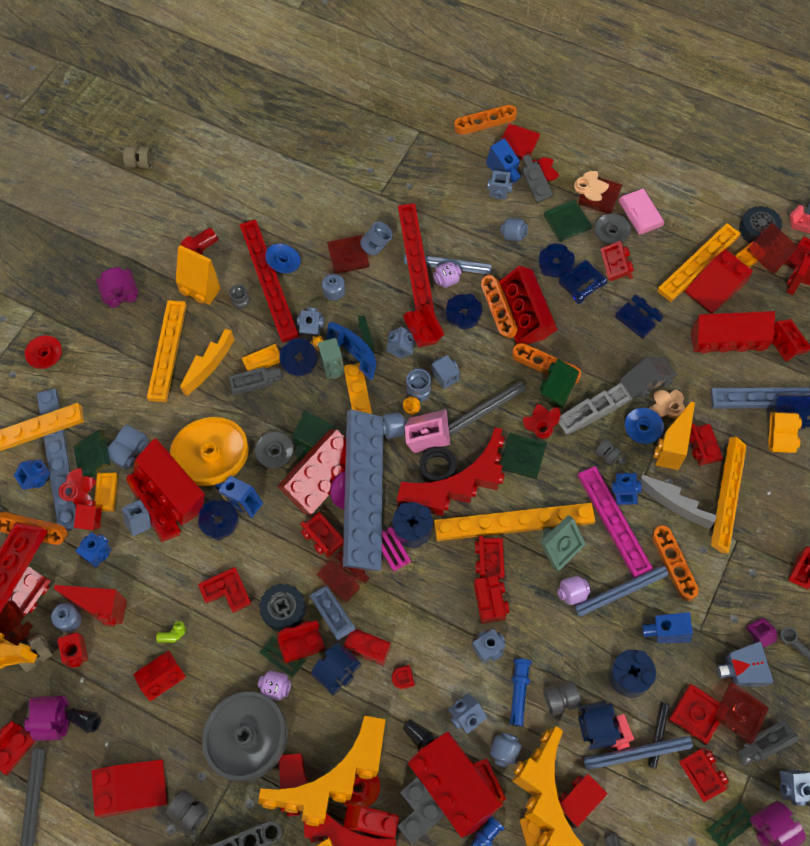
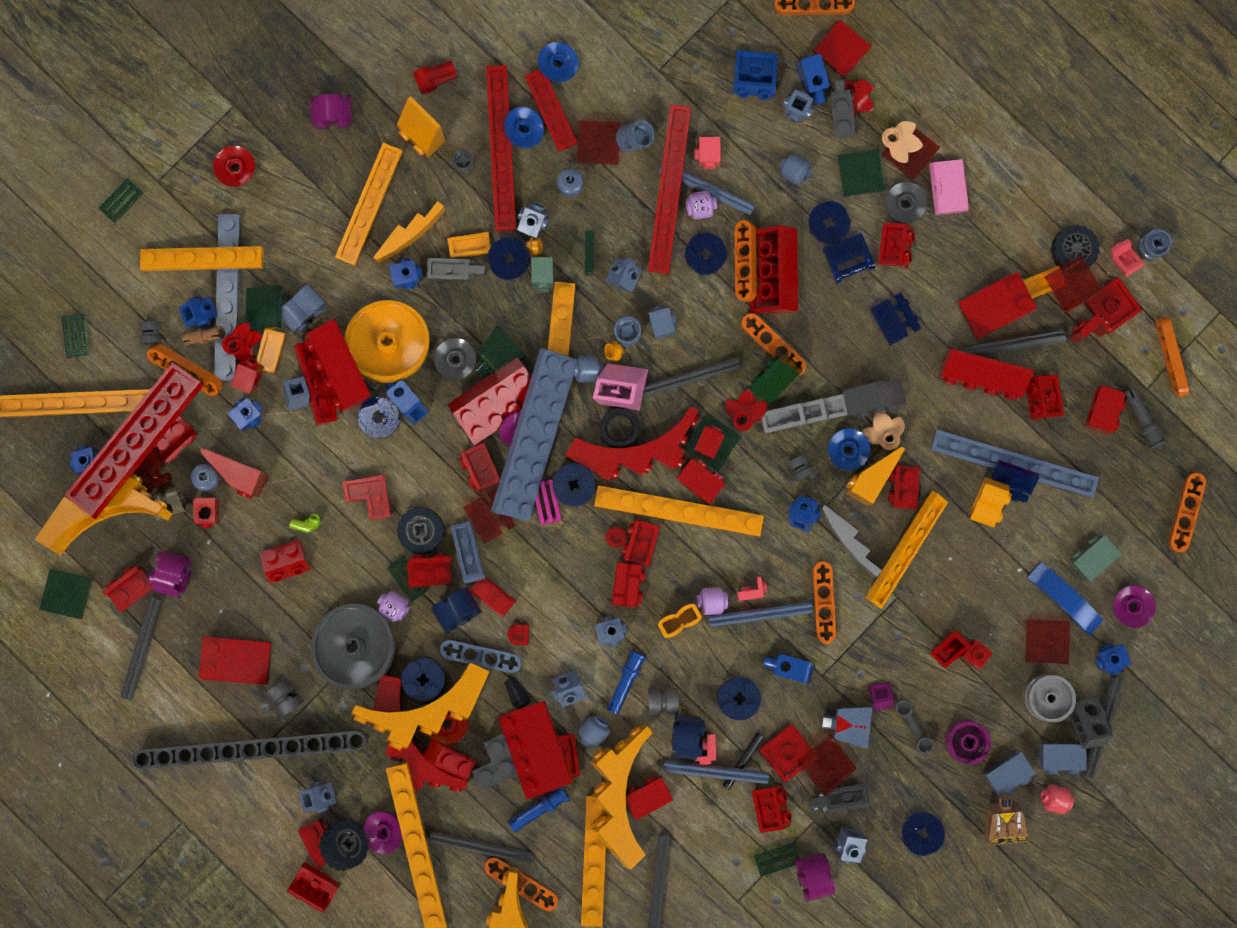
camera: 10 degrees right, 20 degrees up
(40, 493) = (203, 335): none -> medium nougat pin
(84, 719) = (205, 584): black cone -> none
(212, 393) = (400, 269): none -> blue brick
(297, 206) = (561, 54): none -> blue dish
(301, 242) = (550, 110): none -> red plate
(312, 741) = (413, 686): none -> dark blue brick
(355, 346) = (560, 245): blue slope -> none
(372, 706) = (481, 654): none -> sand blue beam
(424, 326) = (653, 266): red bracket -> none
(440, 236) = (708, 152): none -> coral brick
(457, 174) = (755, 74): none -> blue plate
(465, 561) = (616, 537): none -> red tile
(521, 452) = (709, 441): none -> red brick
(524, 489) = (701, 481): none -> red brick
(547, 618) = (674, 623): none -> light orange brick
(562, 542) = (717, 550): sand green tile -> none
(607, 573) = (749, 593): none -> coral bracket
(614, 522) = (780, 541): dark pink tile -> none
(698, 262) = (987, 273): light orange plate -> none
(757, 301) = (1016, 343): none -> dark grey axle

